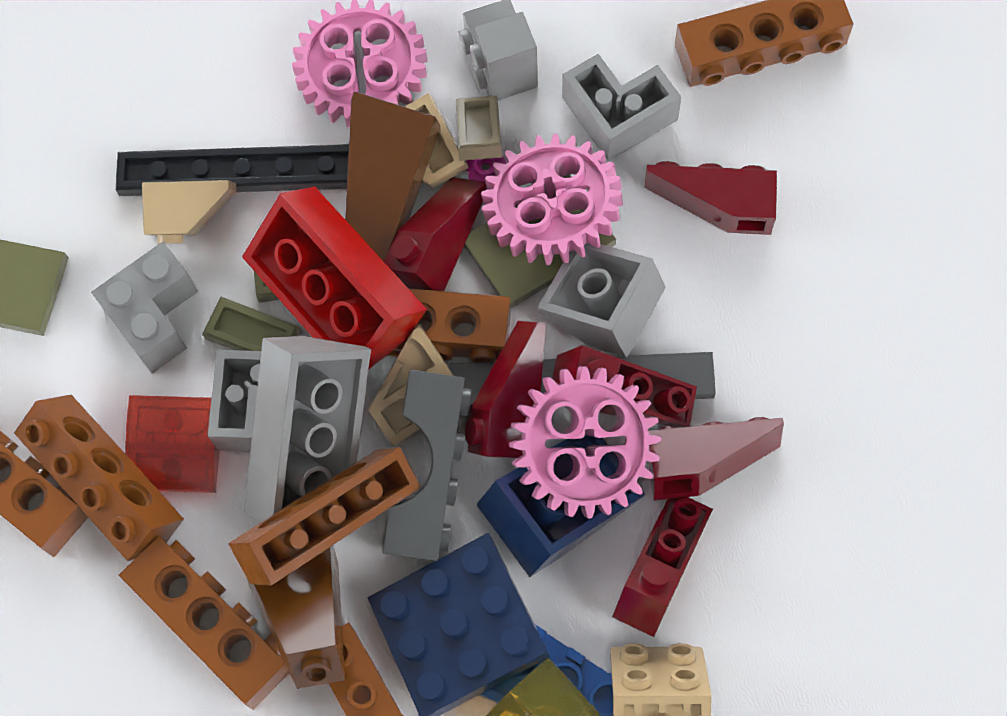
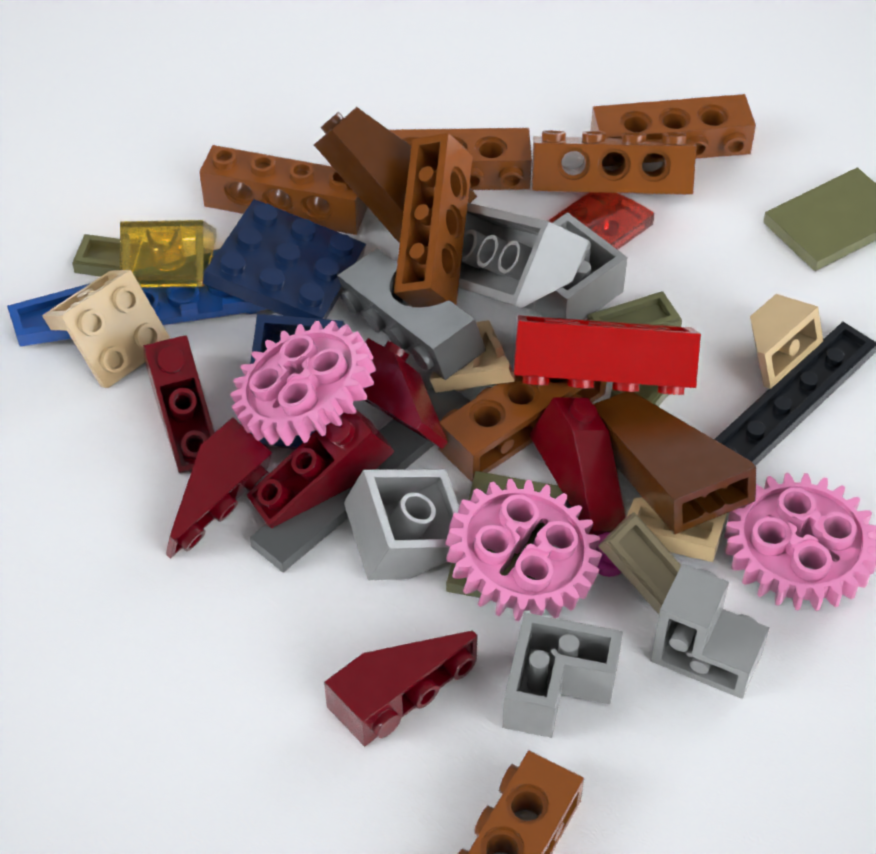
camera: 130 degrees right, 20 degrees down
(141, 298) = (714, 262): light grey brick -> none

